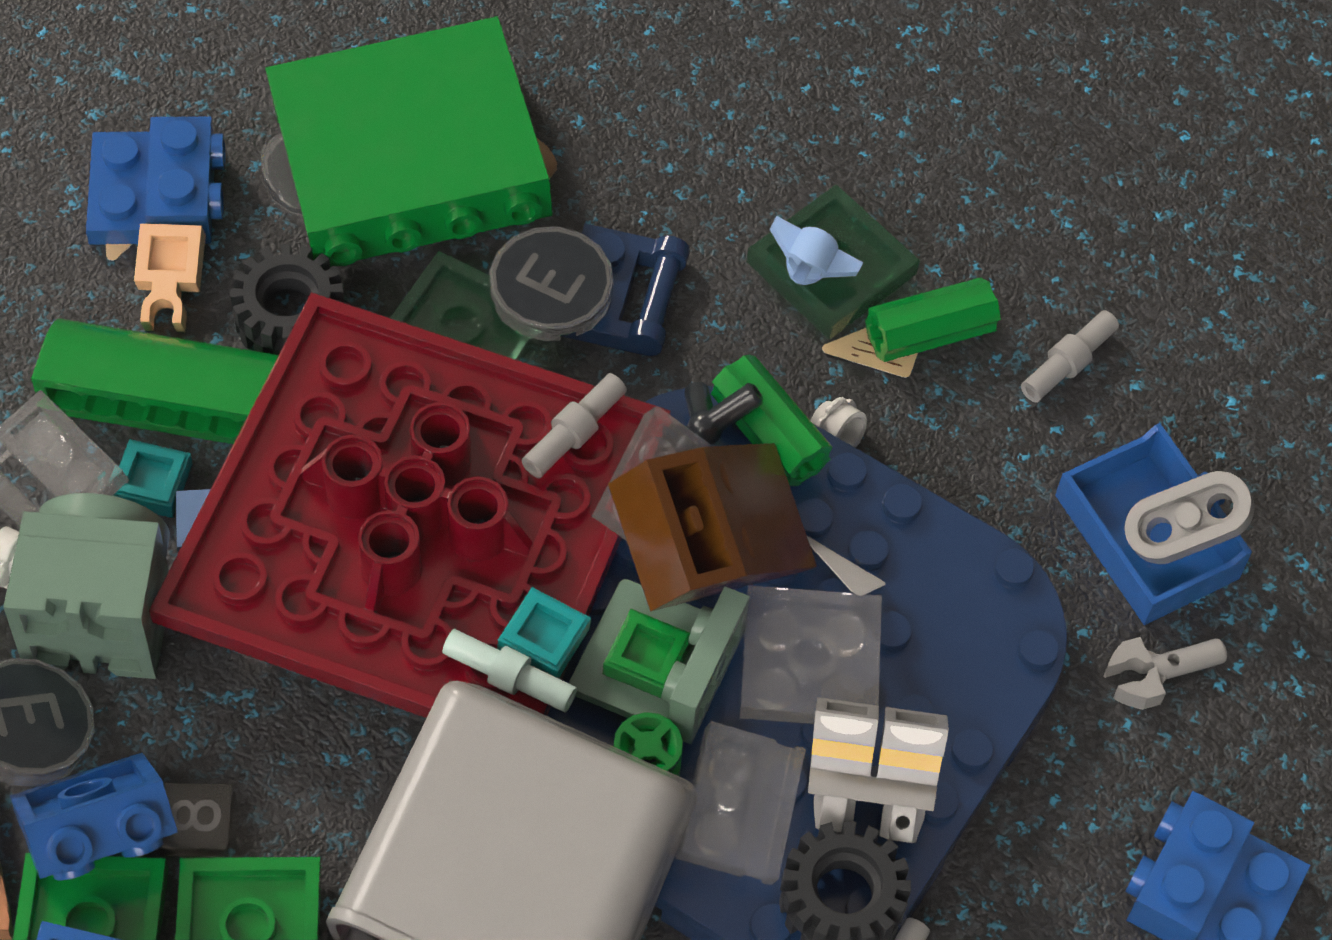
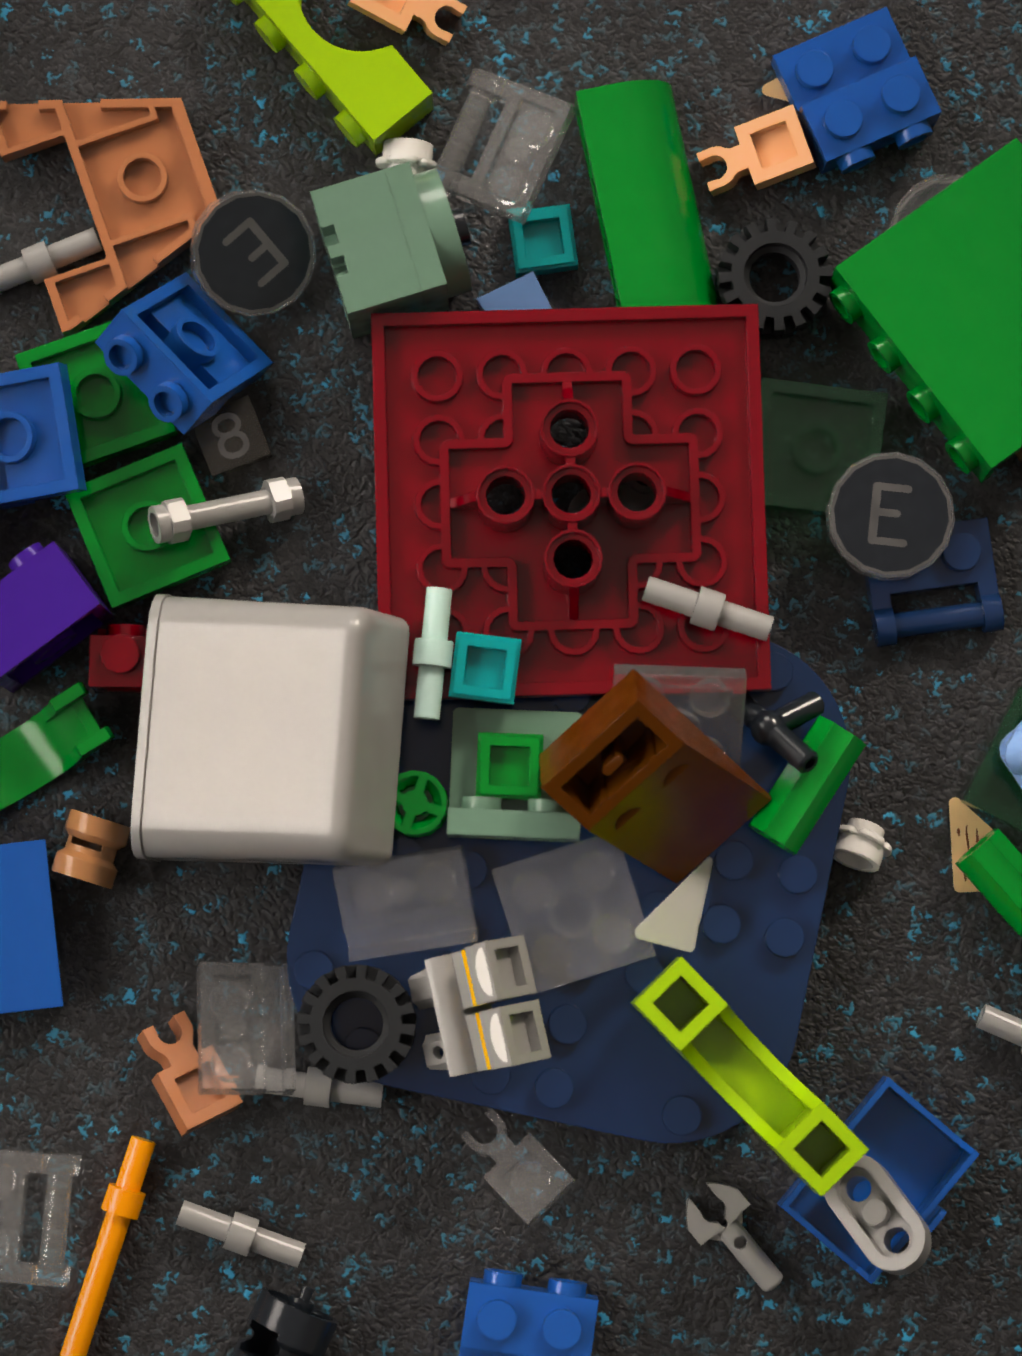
camera: 70 degrees right, 25 degrees up
(259, 880) = (174, 520): none -> light grey bar
(1042, 818) = (523, 1173): none -> clear plate
(1089, 536) = (749, 1076): none -> lime arch

